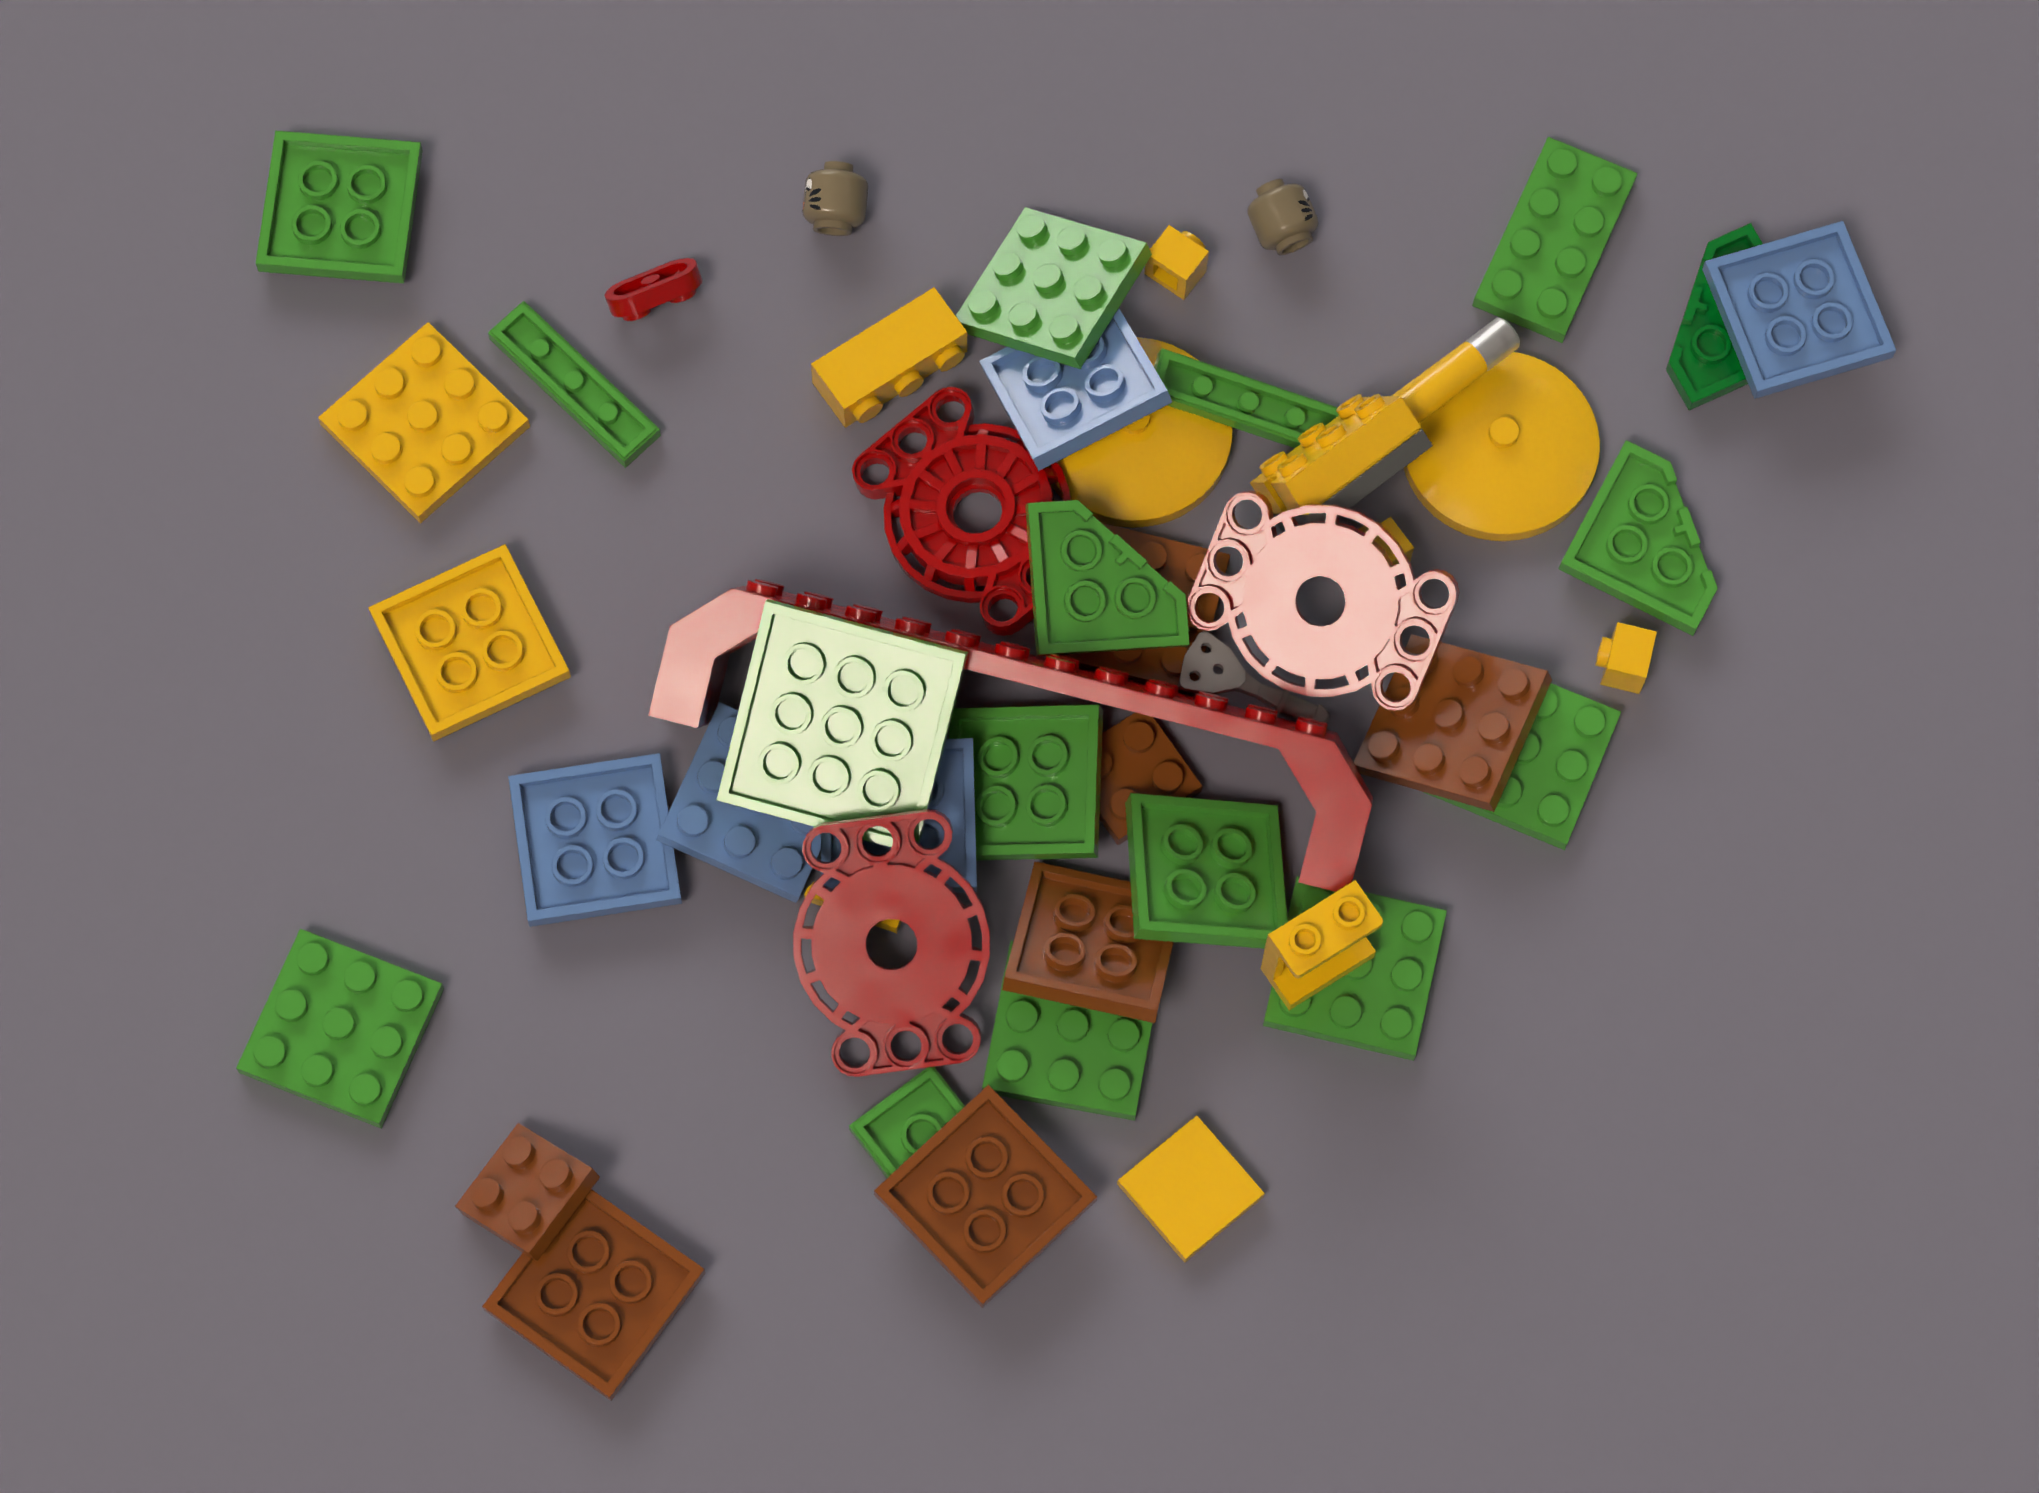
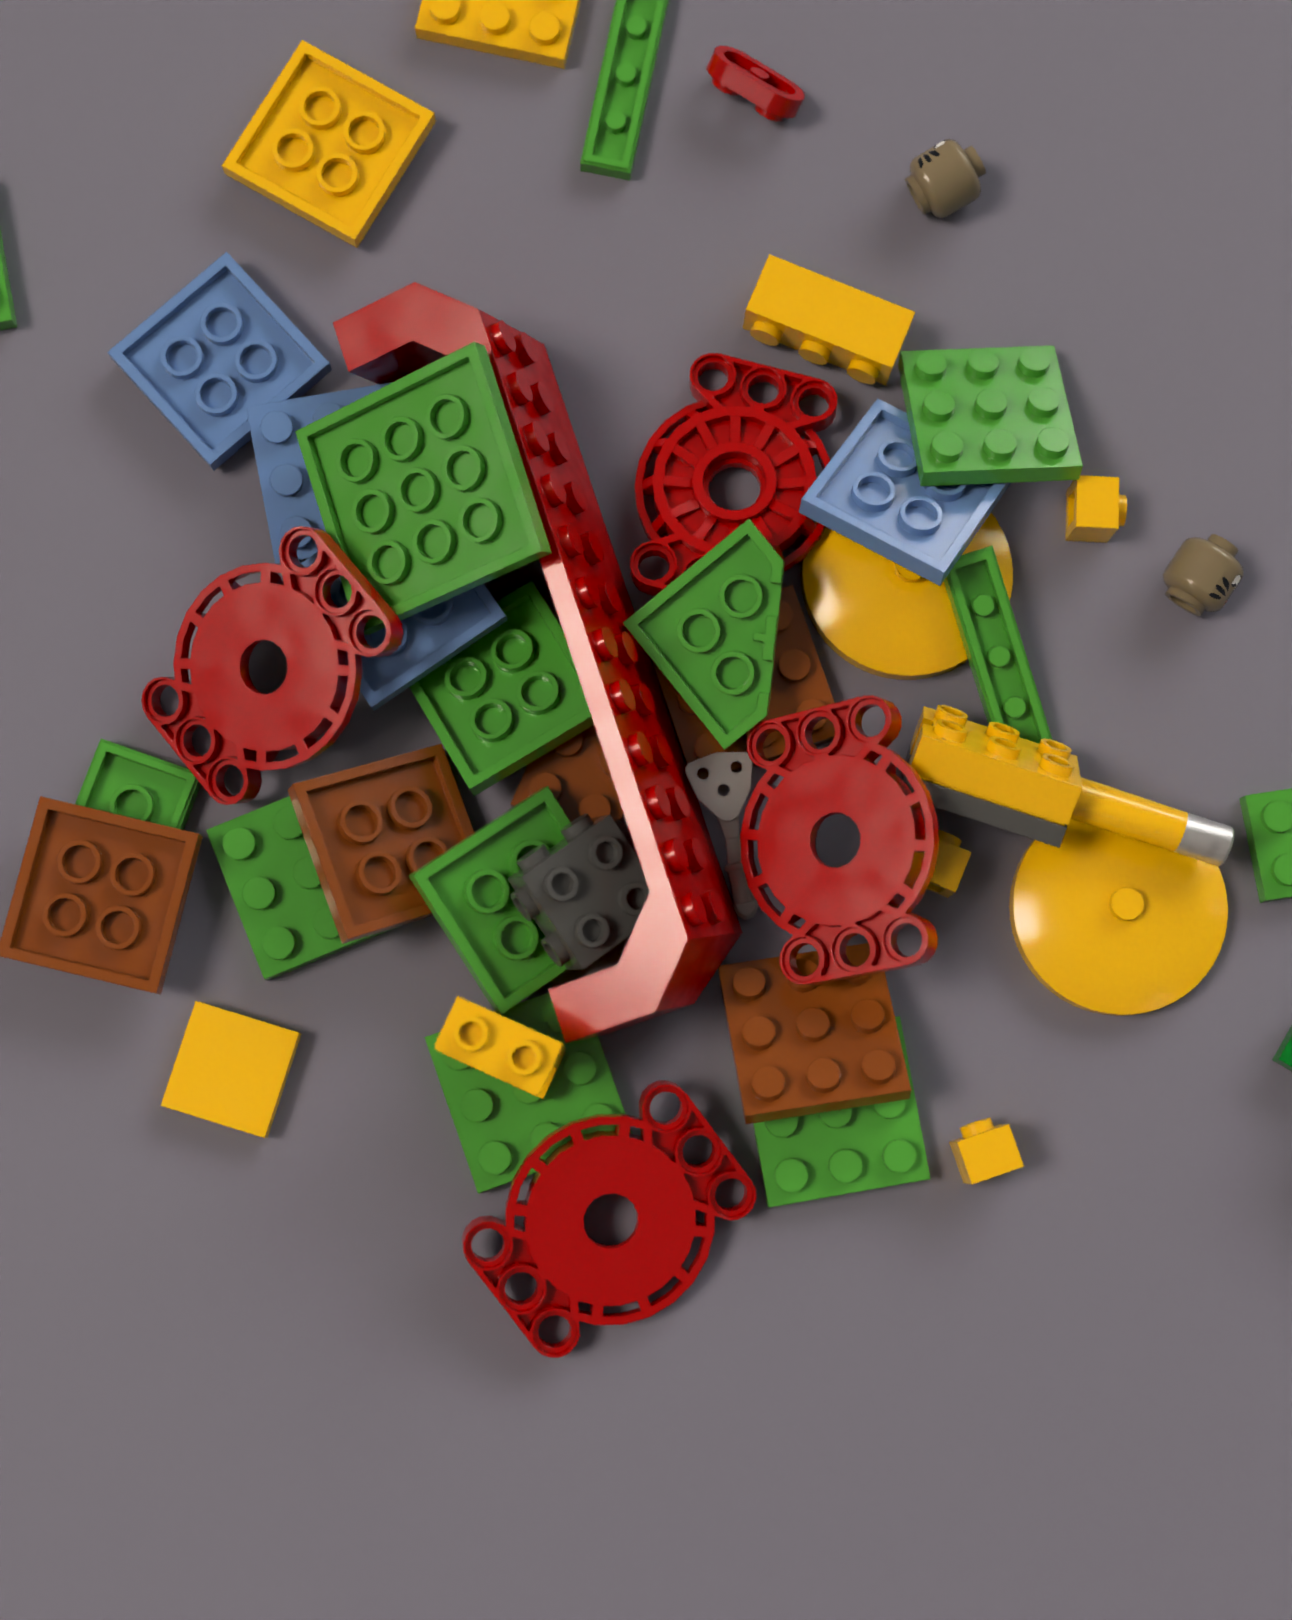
camera: 55 degrees right, 10 degrees up
(1235, 813) = (582, 890): none -> dark grey brick
(1461, 1000) = (553, 1236): none -> red piece
(1643, 543) = (1110, 1098): bright green plate -> none

